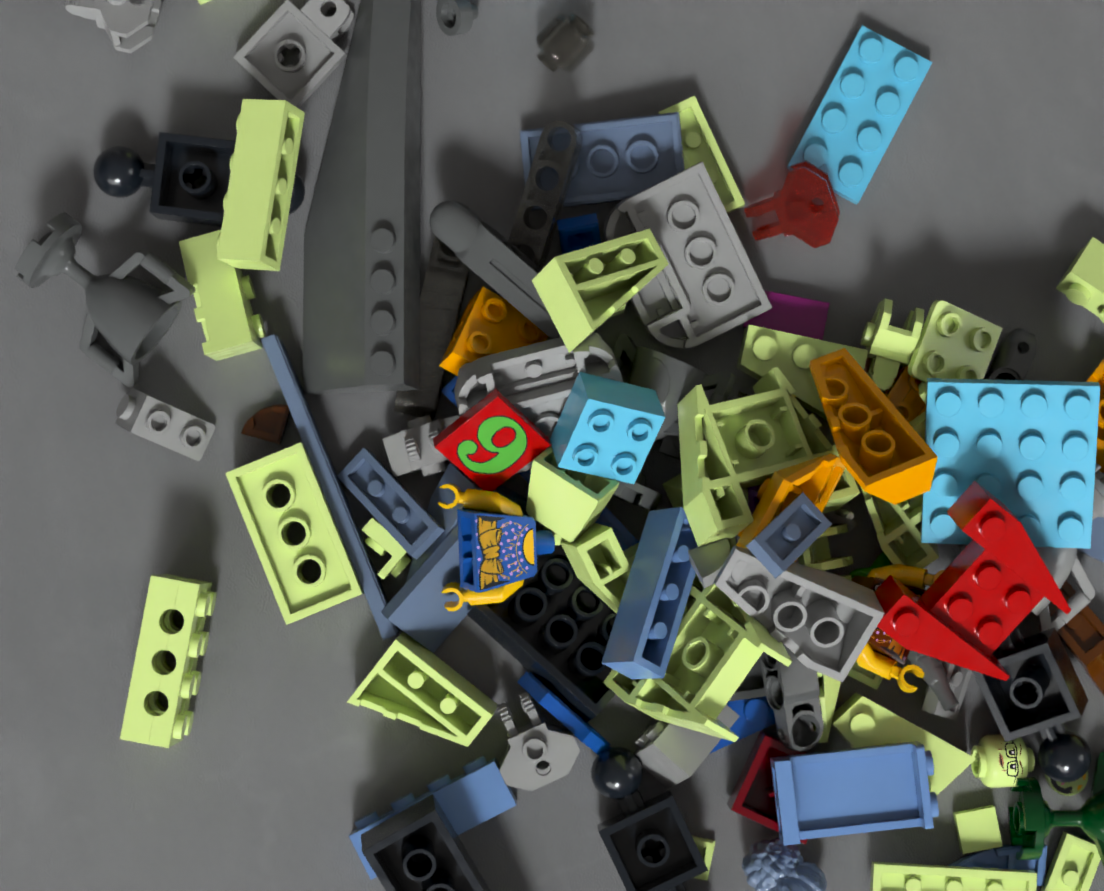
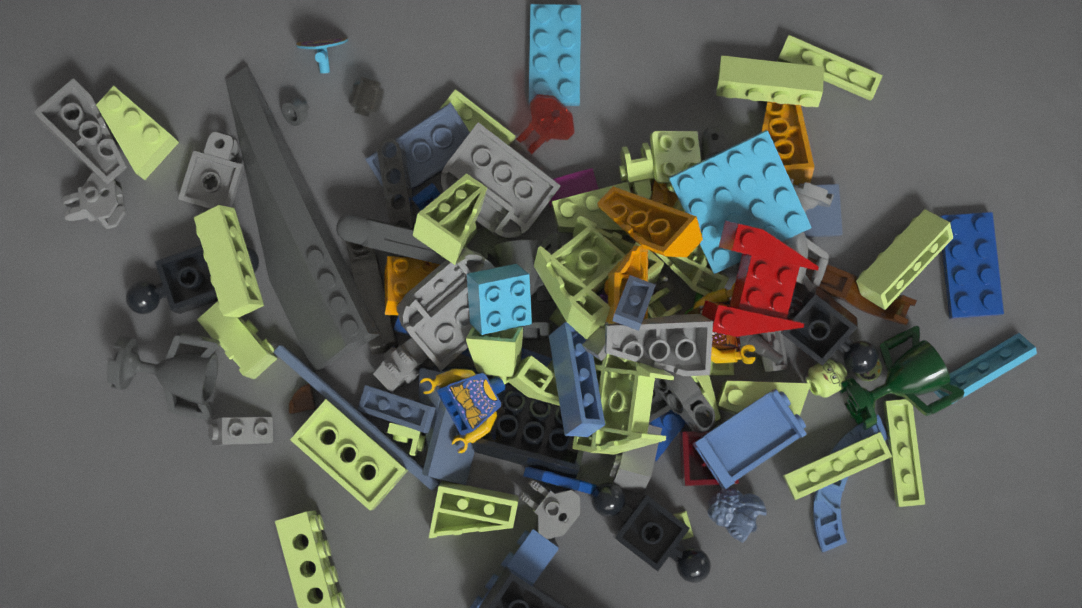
camera: 25 degrees left, 5 degrees down
(491, 441) = (436, 340): red tile -> none
(977, 829) = (833, 425): yellowish green tile -> none

